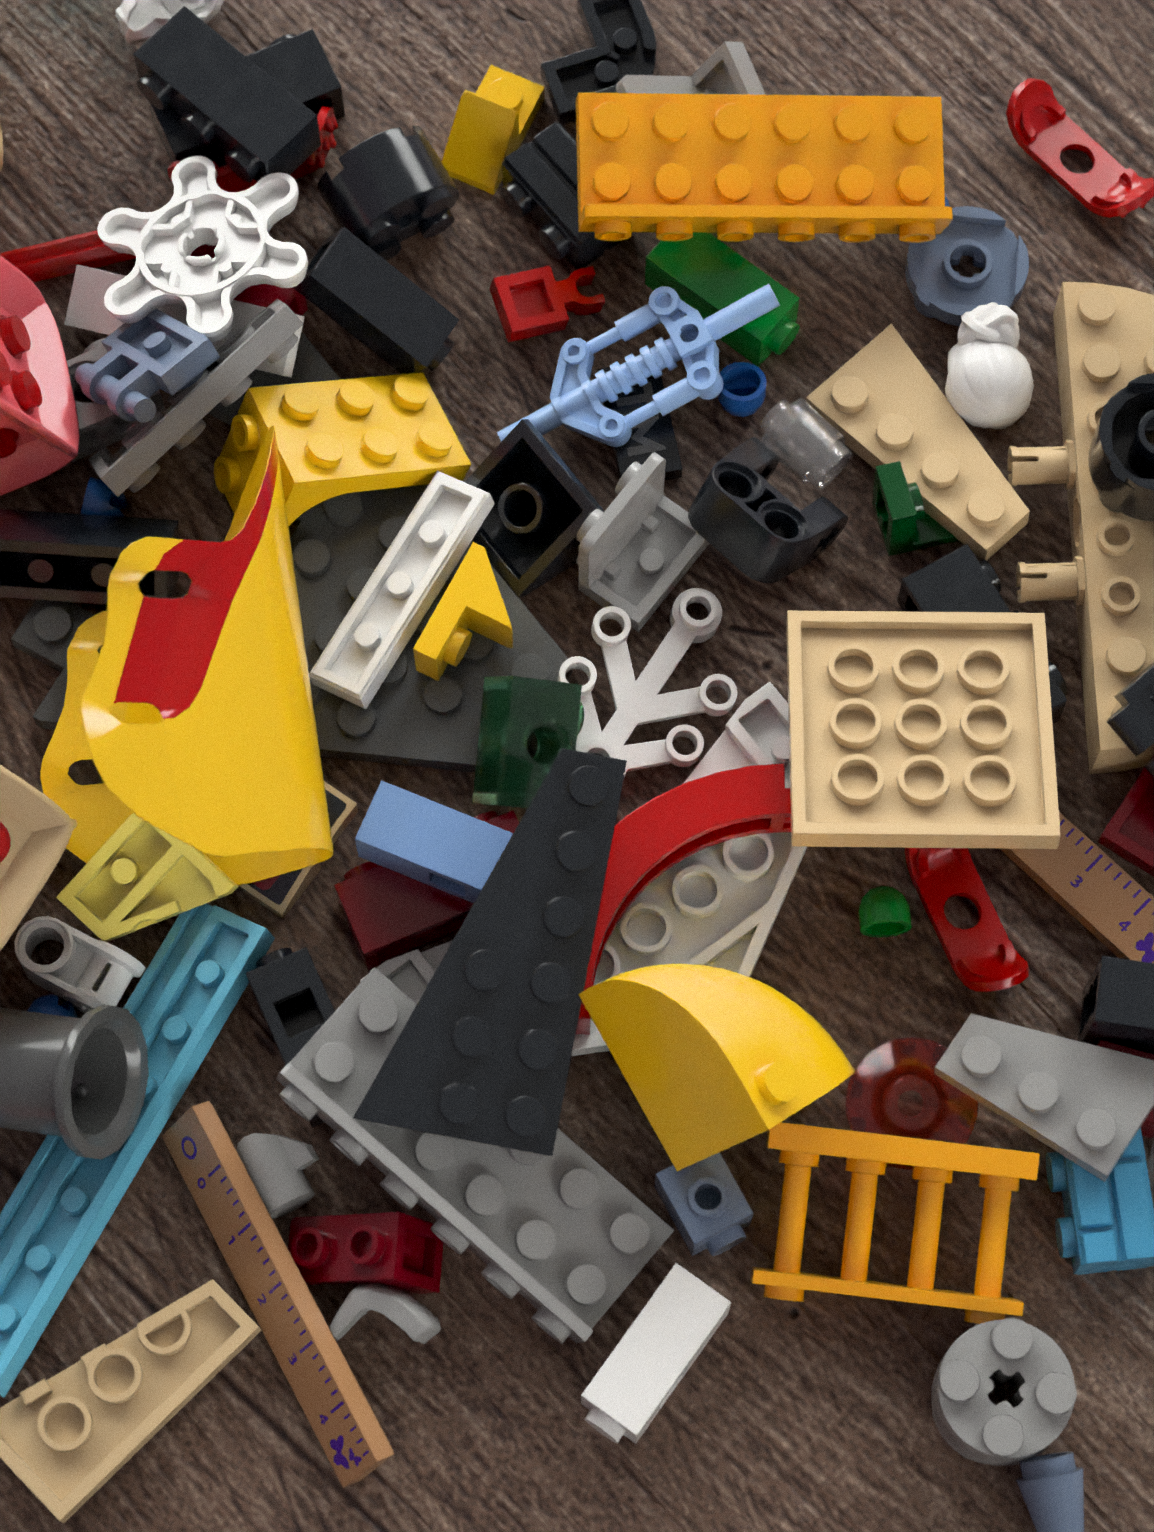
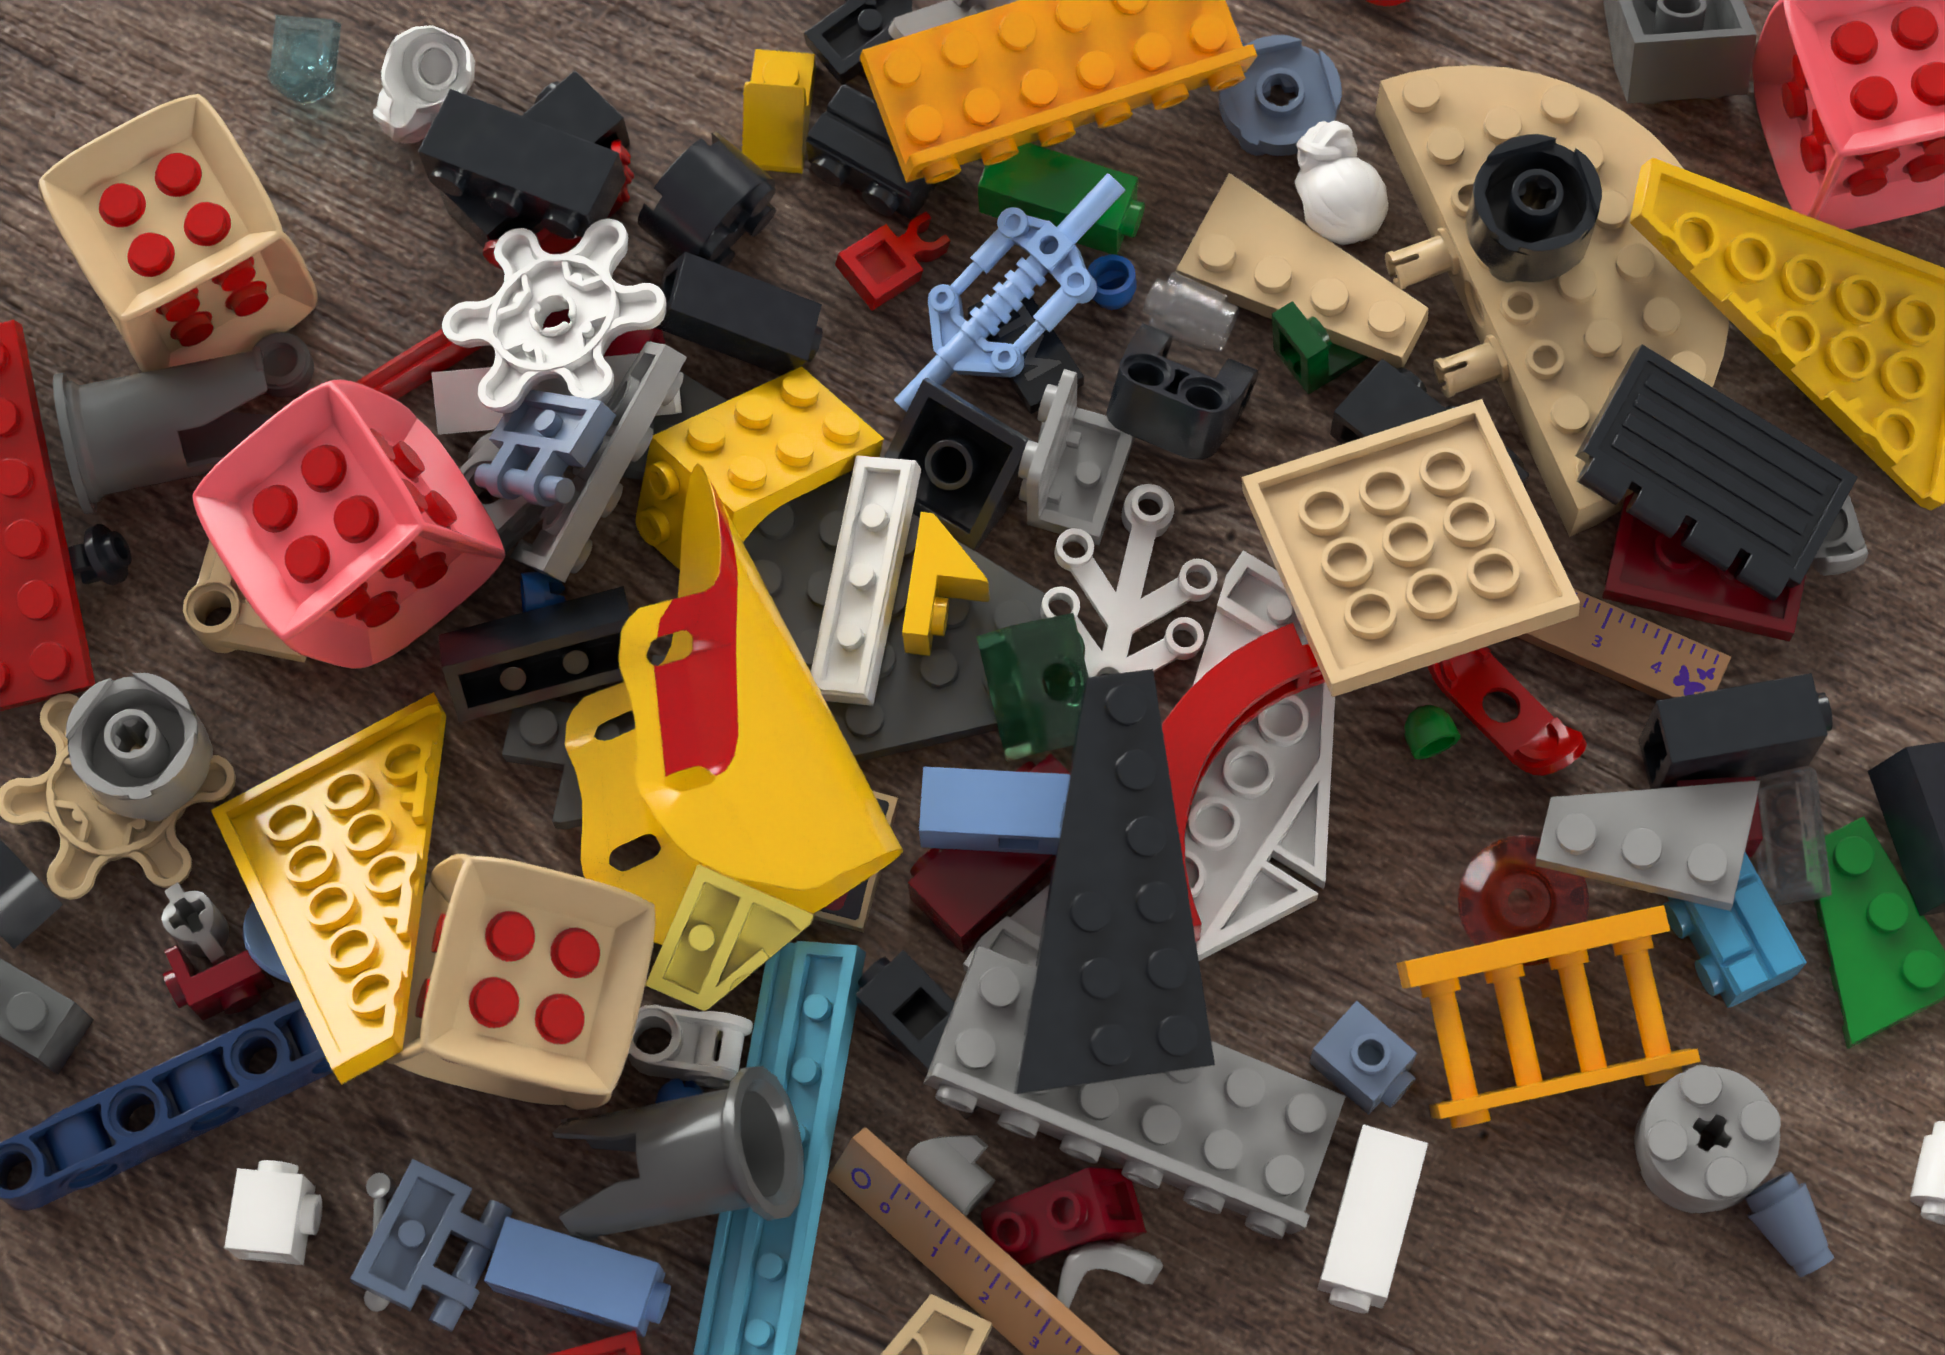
camera: 15 degrees left, 0 degrees up
(712, 1054) = (1332, 918): yellow brick -> none

